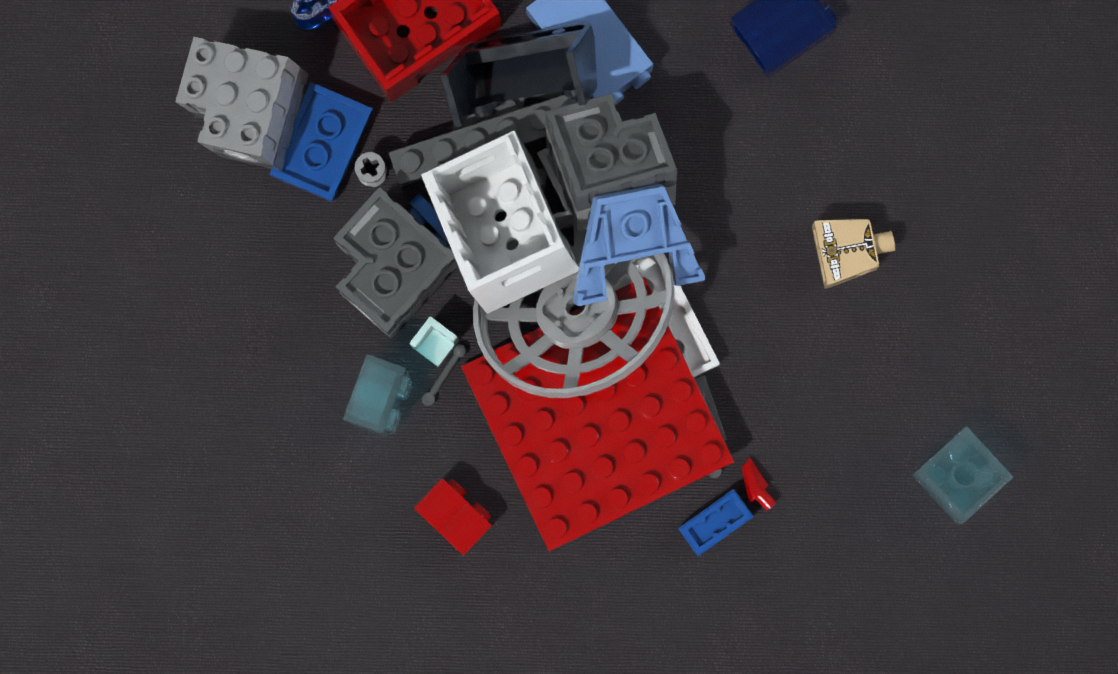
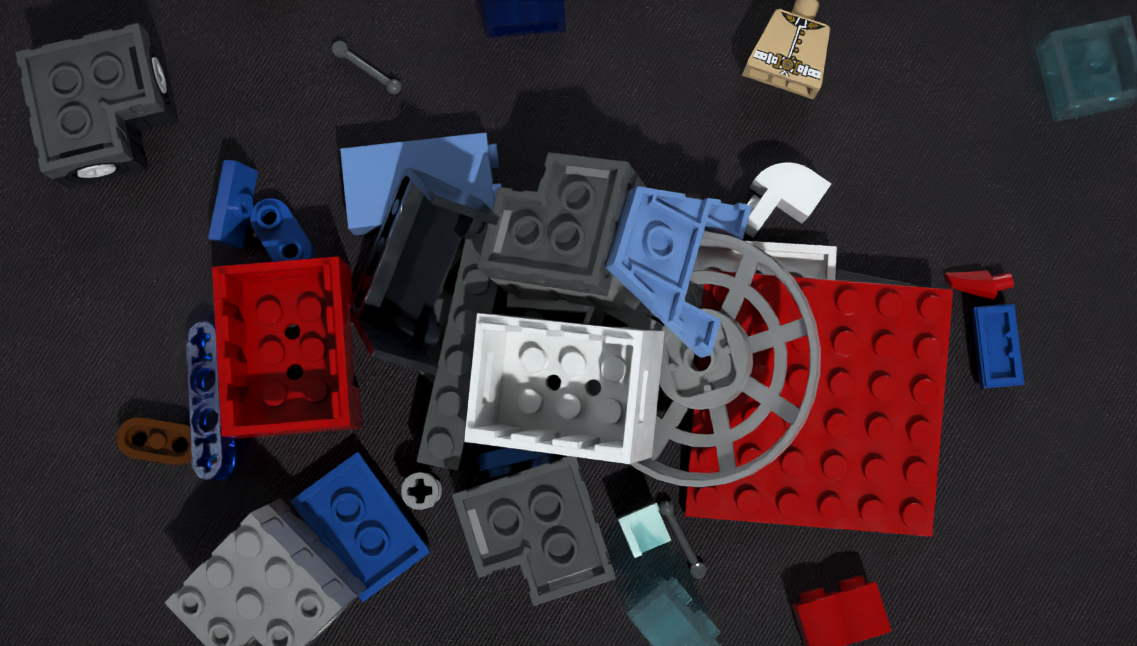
camera: 65 degrees left, 0 degrees up
(743, 304) = (788, 187): none -> white brick

